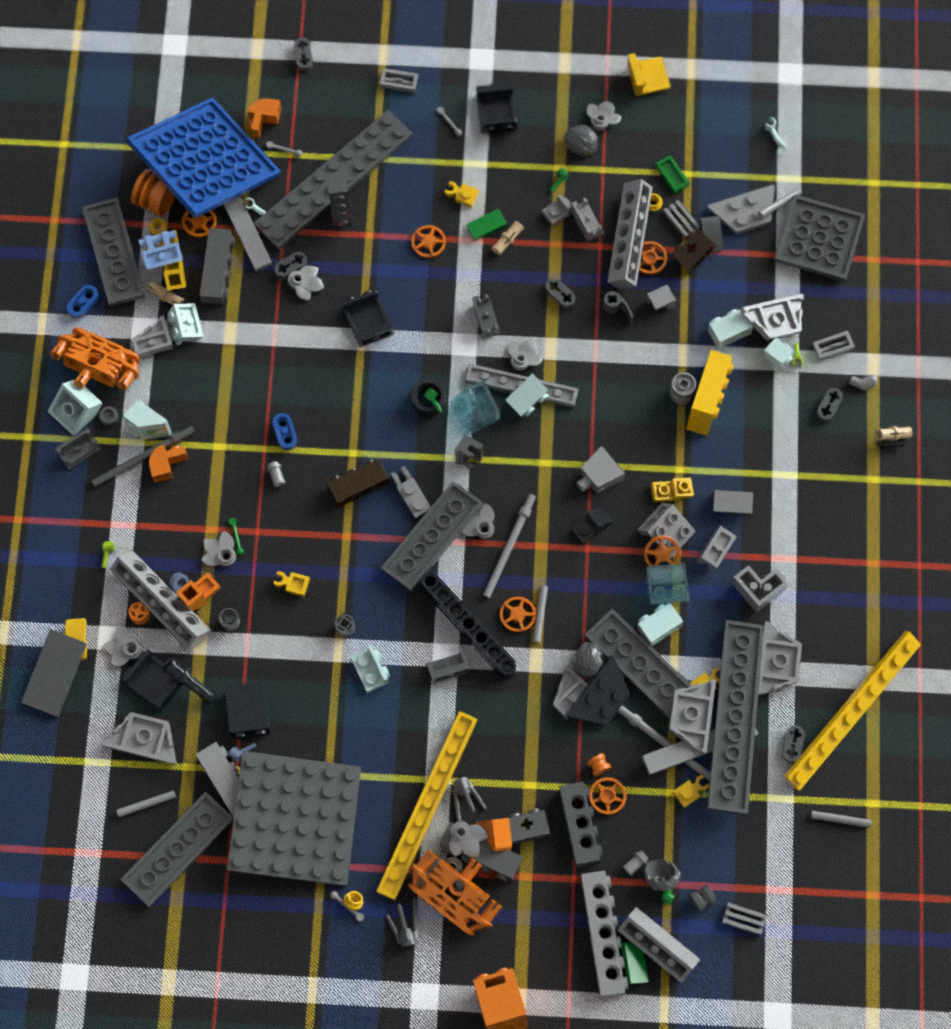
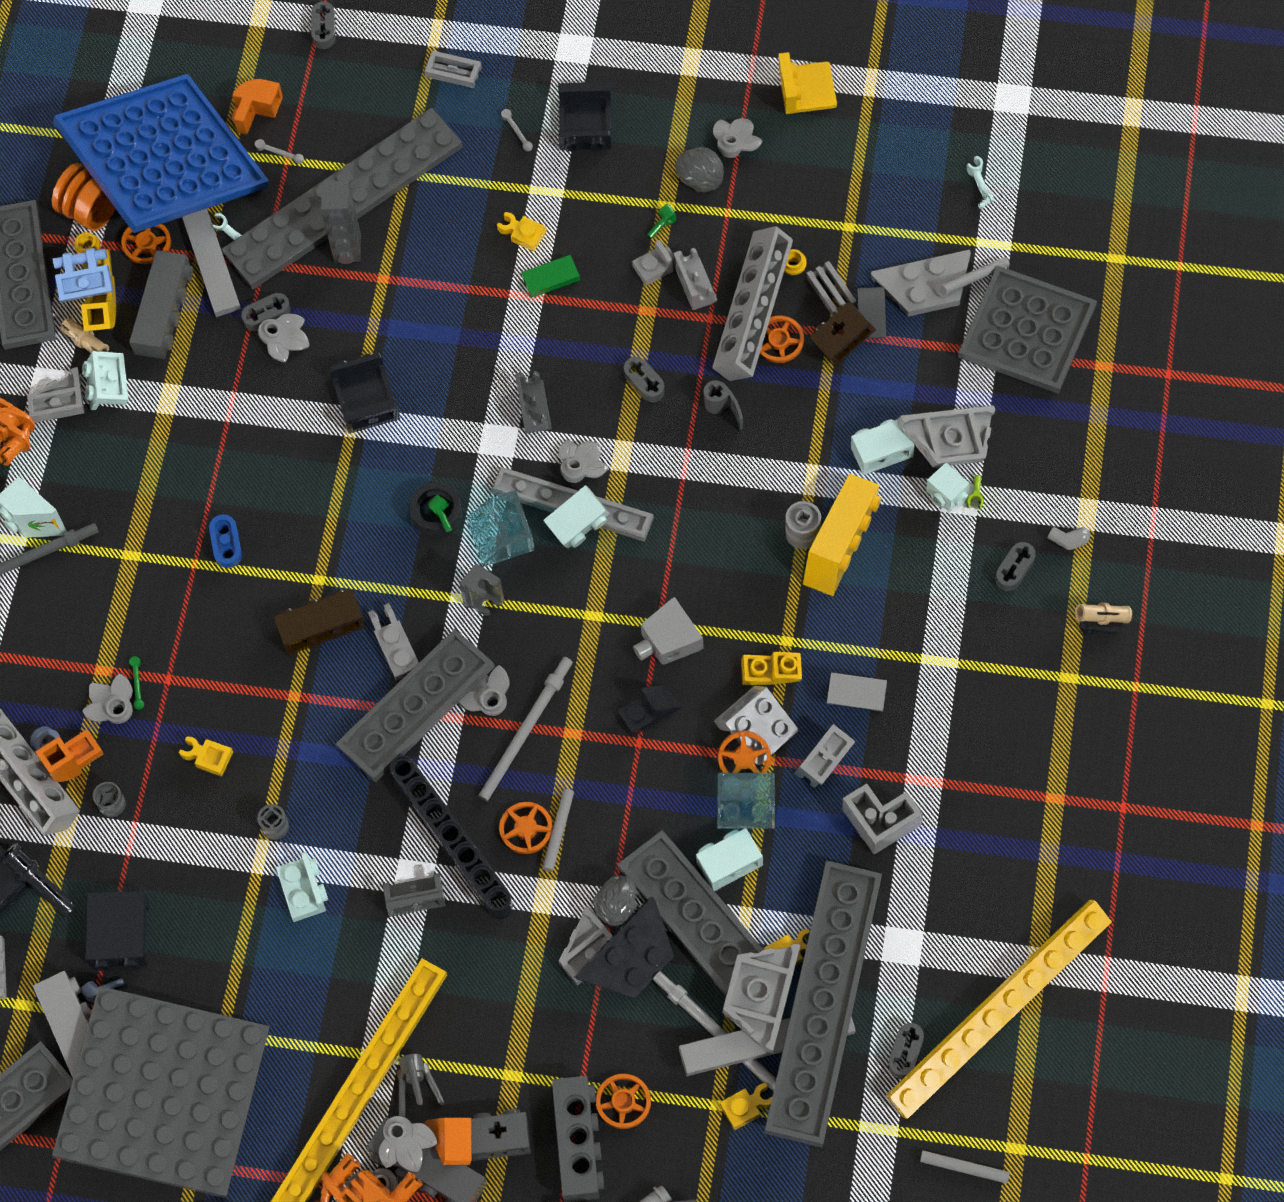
camera: 10 degrees right, 5 degrees down
(161, 460) = (45, 566): orange brick -> none
(276, 474) = (204, 598): light grey pin -> none
(428, 241) = (465, 293): orange wheel -> none
(507, 238) = (578, 296): tan pin -> none
(598, 765) = (615, 1054): orange wheel -> none
(661, 298) = (787, 395): light grey panel -> none
(672, 174) = (825, 226): green tile -> none
(779, 660) = (897, 927): light grey wing -> none
(818, 351) = (1034, 492): light grey tile -> none

